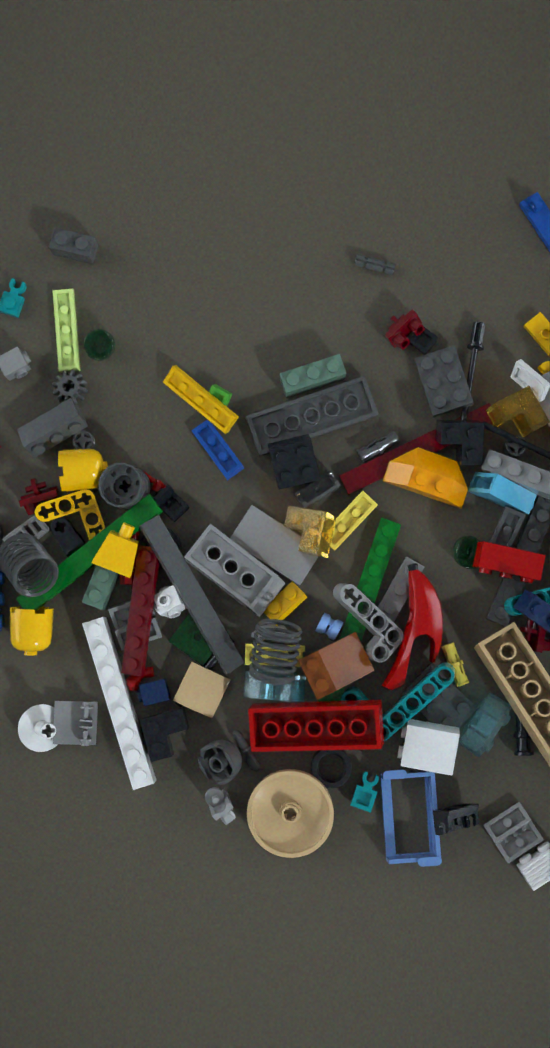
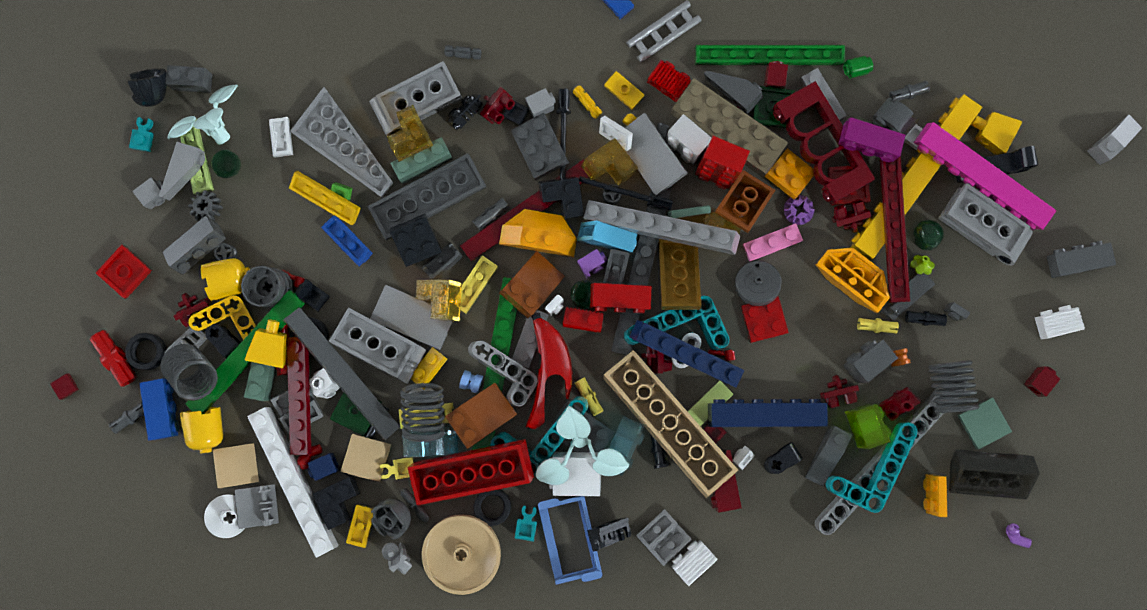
camera: 15 degrees left, 0 degrees up
(30, 247) = (148, 86): none -> black hair
(54, 340) = (182, 167): none -> light grey slope
(59, 674) = (235, 465): none -> tan slope
(94, 298) = (210, 122): none -> light aqua plant
(163, 325) = (281, 137): none -> white plate
(184, 763) = (360, 526): none -> yellow plate
(220, 334) = (333, 136): none -> light grey wing
(237, 707) = (399, 468): none -> light yellow plate
(284, 307) = (388, 102): none -> light grey hinge
(309, 349) = (412, 138): none -> clear yellow brick
(373, 323) = (469, 102): none -> black hinge
(412, 532) = (532, 285): none -> dark orange slope
(435, 559) = (555, 305): none -> white plate
(441, 697) = (575, 427): none -> light aqua plant
(452, 333) = (540, 102): none -> light grey brick
(462, 579) = (583, 320): none -> red brick
(481, 518) = (592, 263): none -> medium lavender brick
(502, 340) = (587, 102): none -> yellow axle

